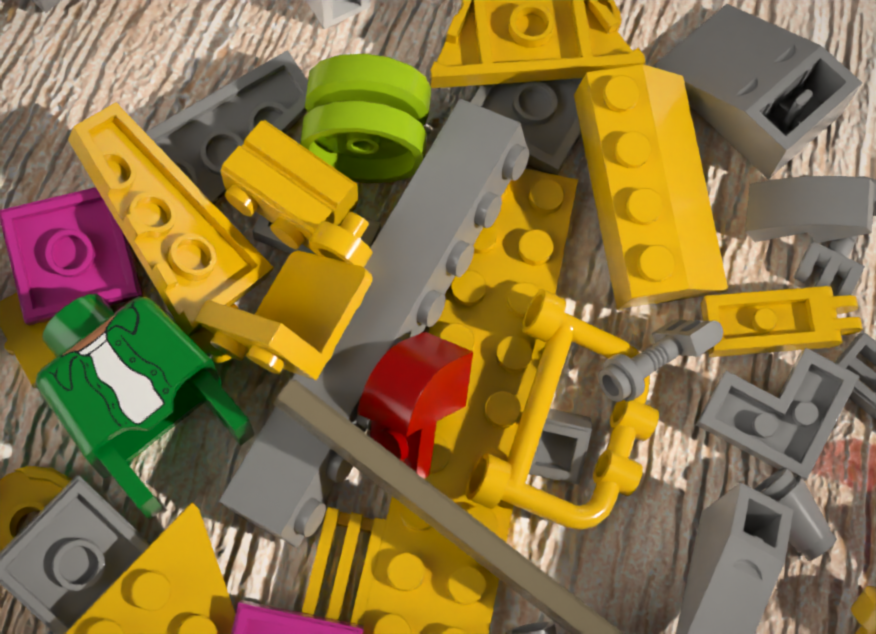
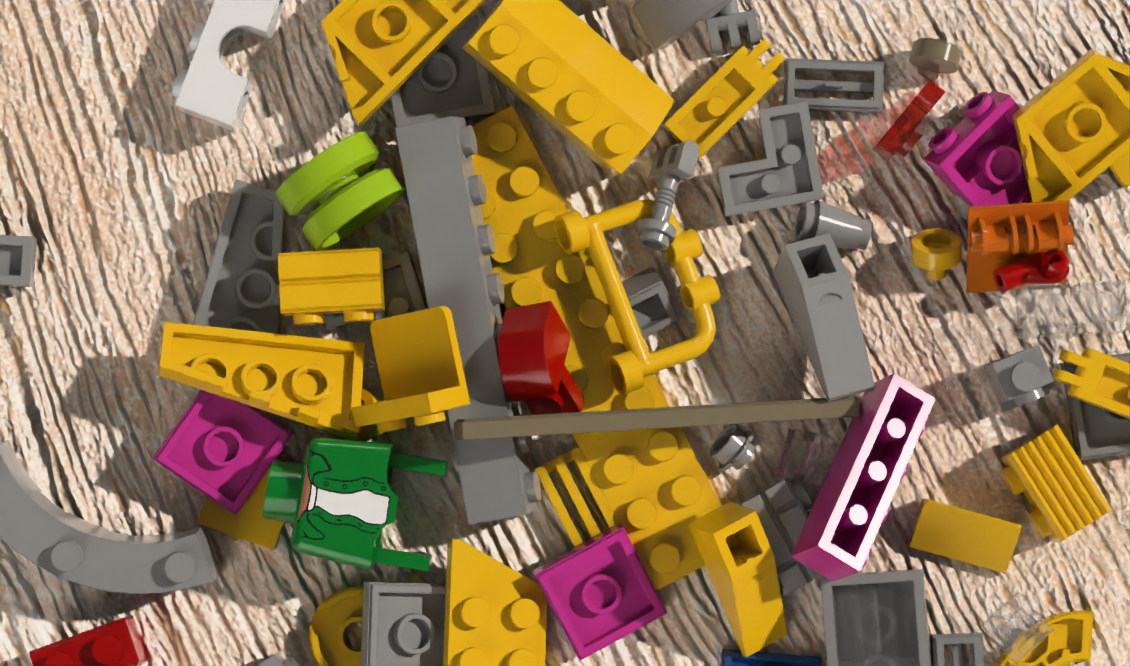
camera: 35 degrees left, 15 degrees up
(342, 241) = (406, 297): yellow tile -> none

